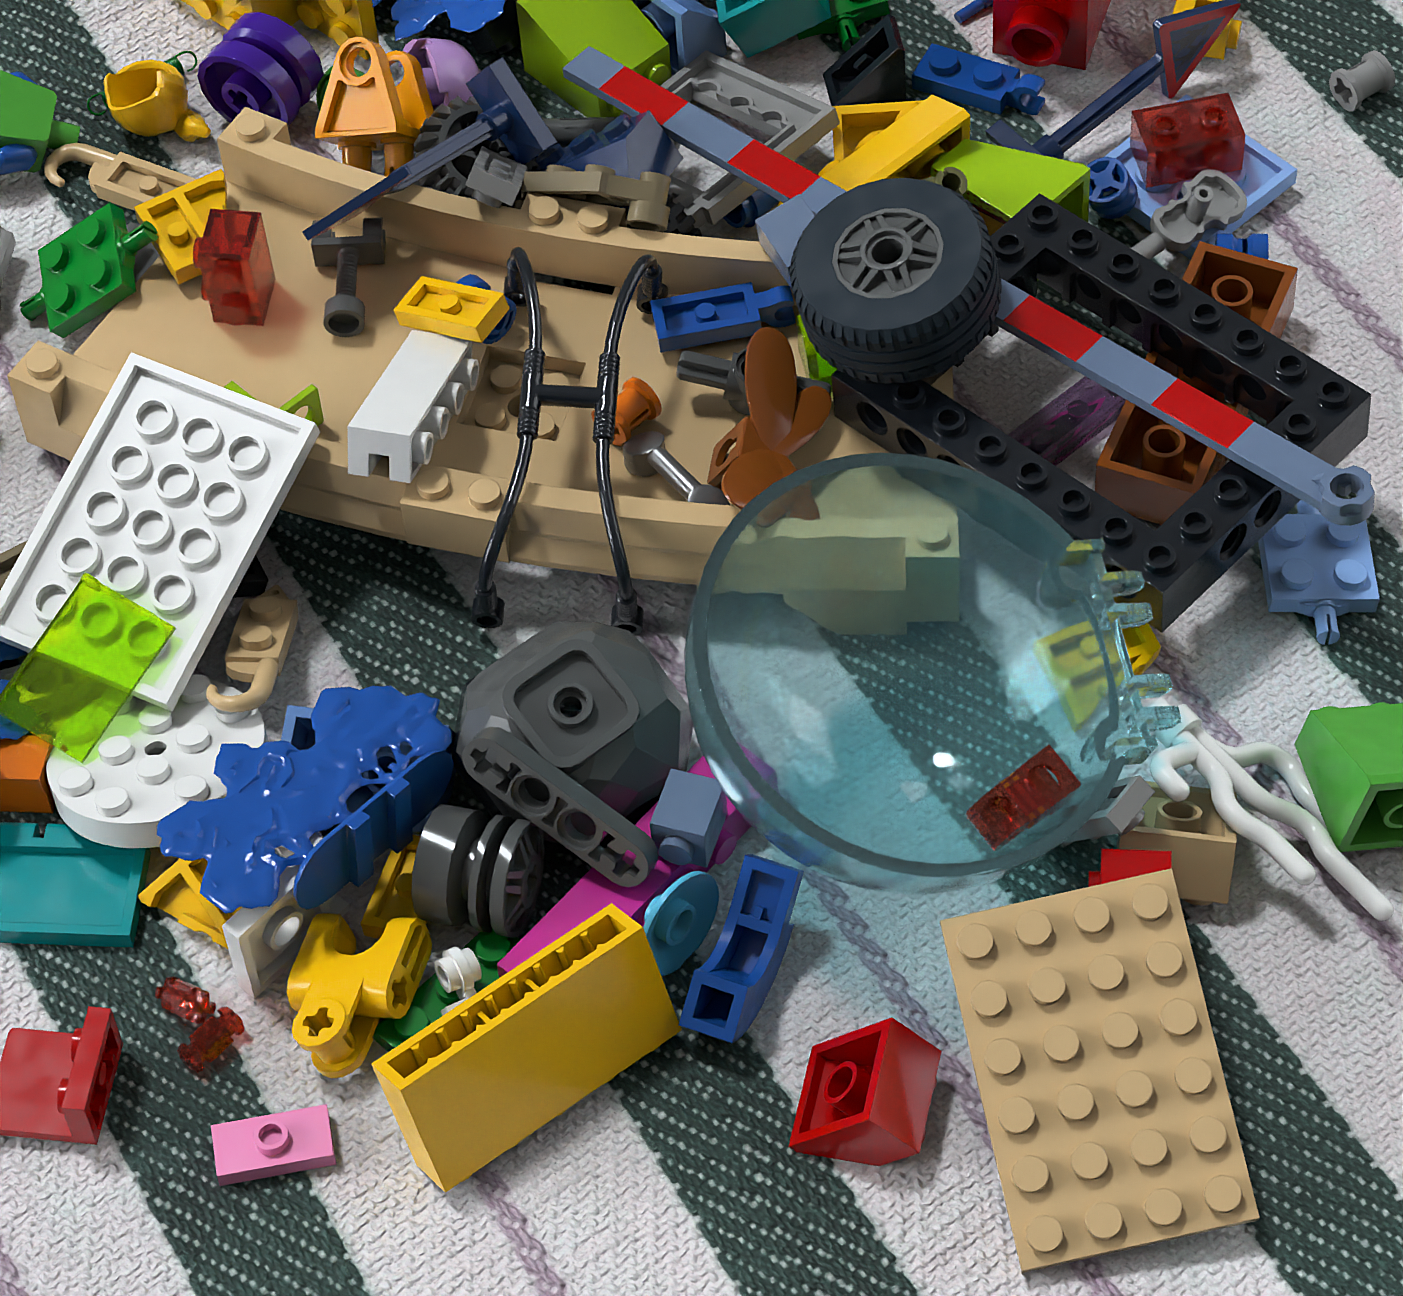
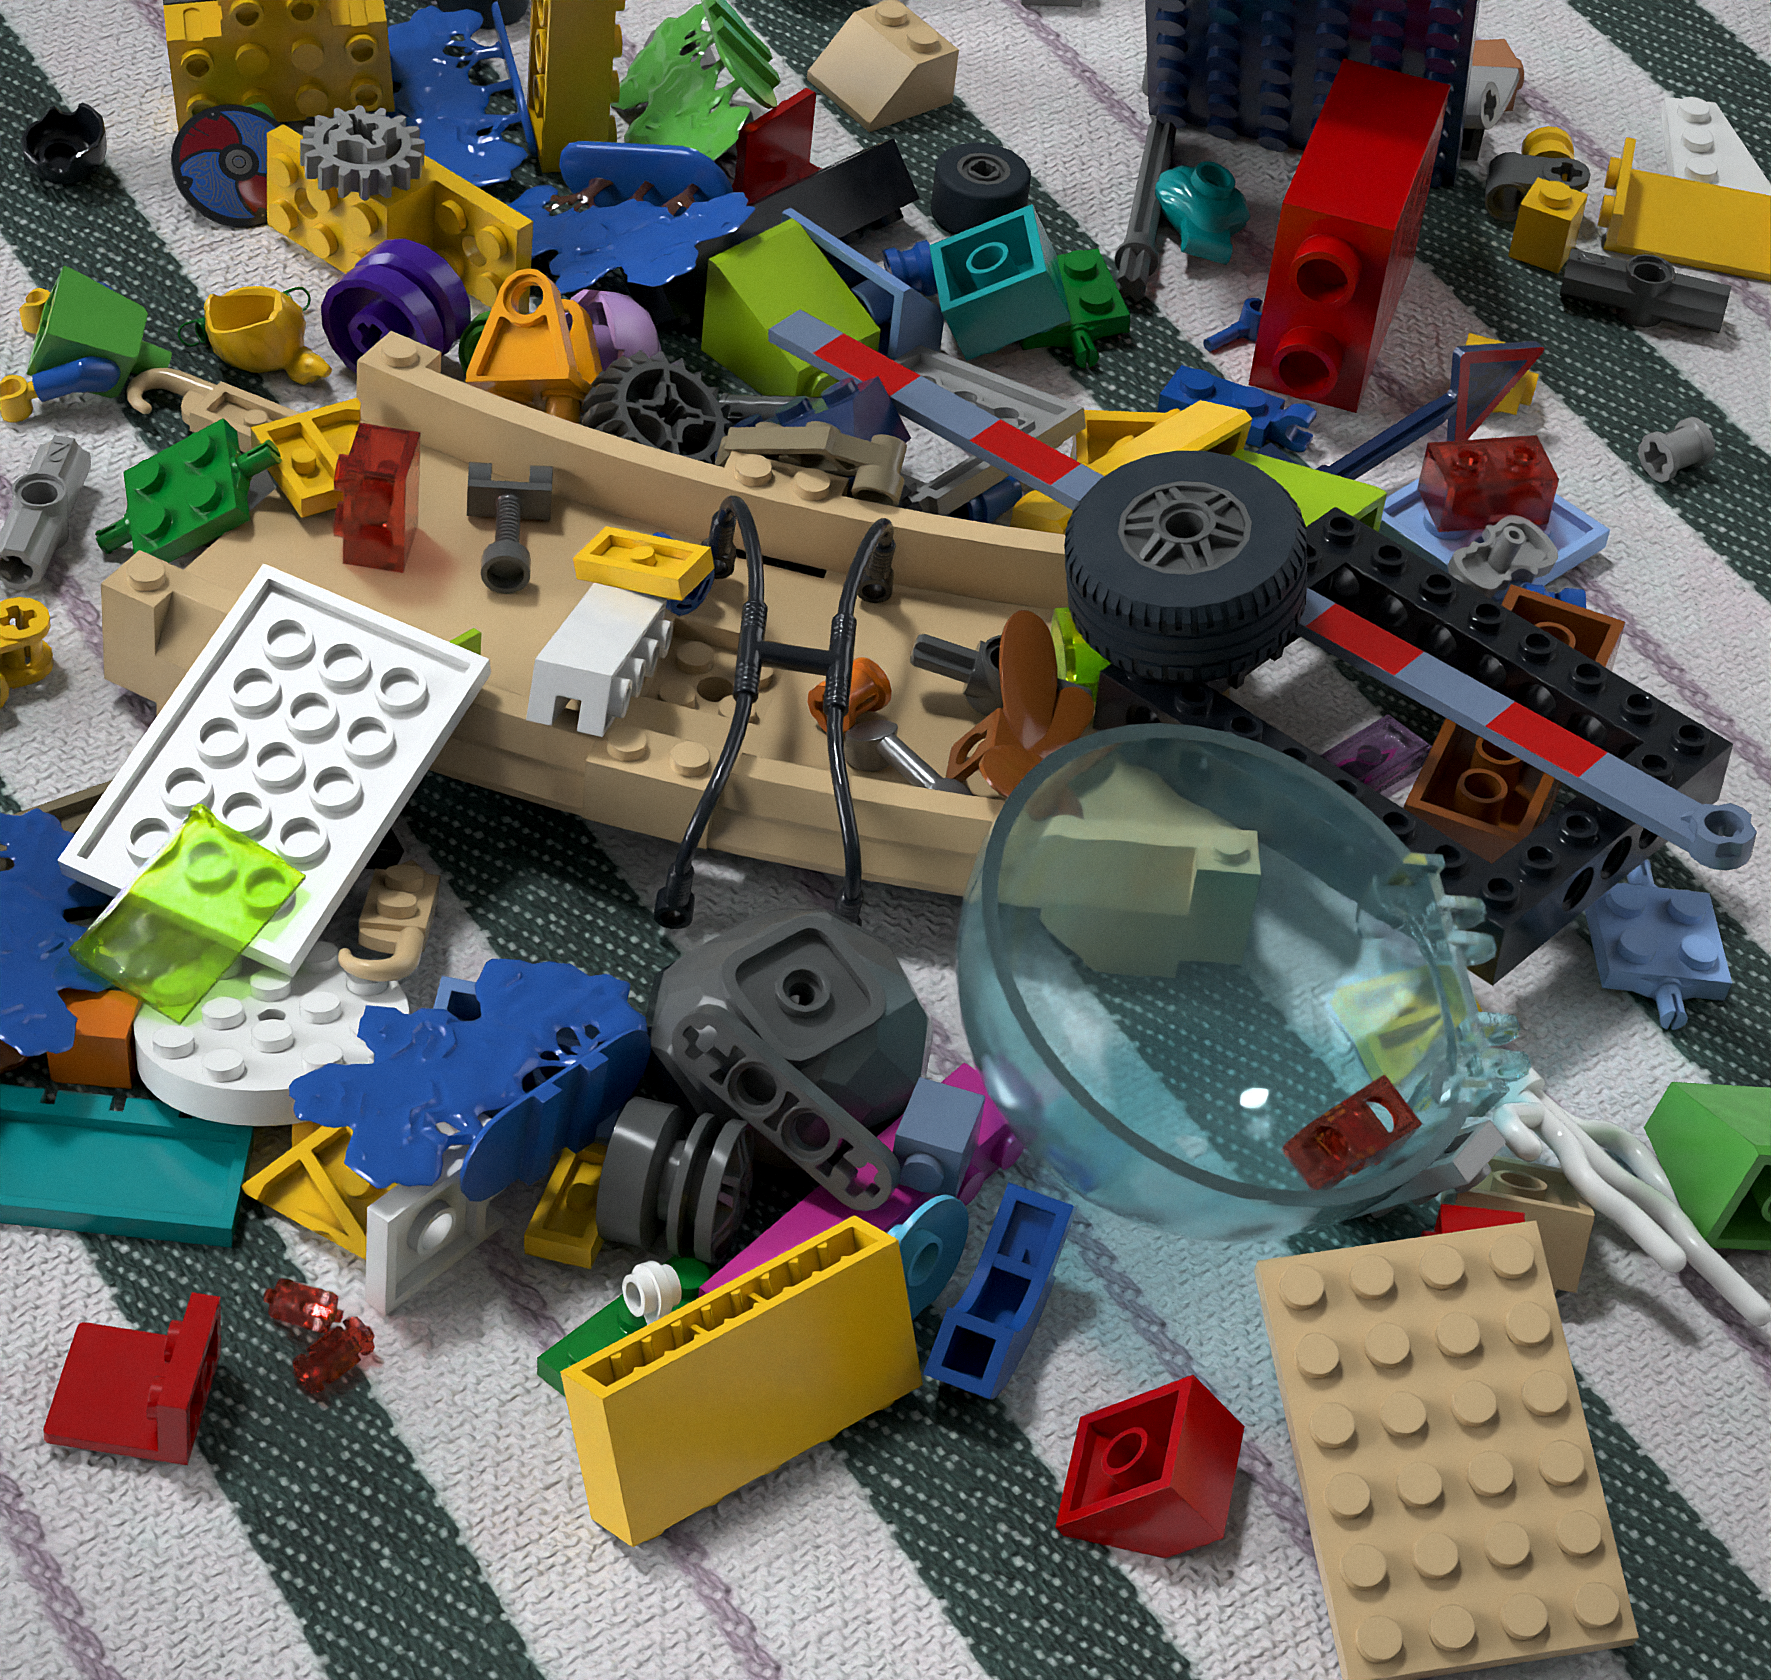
camera: 10 degrees left, 10 degrees down
(273, 1145) = (412, 1480): bright pink plate -> none
(346, 993) = (508, 1311): yellow piece -> none
(495, 178) = (691, 434): light grey plate -> none
(505, 115) = (698, 371): dark blue piece -> none
(719, 315) = (952, 605): blue plate -> none
(780, 232) = (1041, 520): sand blue brick -> none
(870, 69) = (1117, 376): black slope -> none
(1109, 174) = (1401, 509): blue wheel -> none

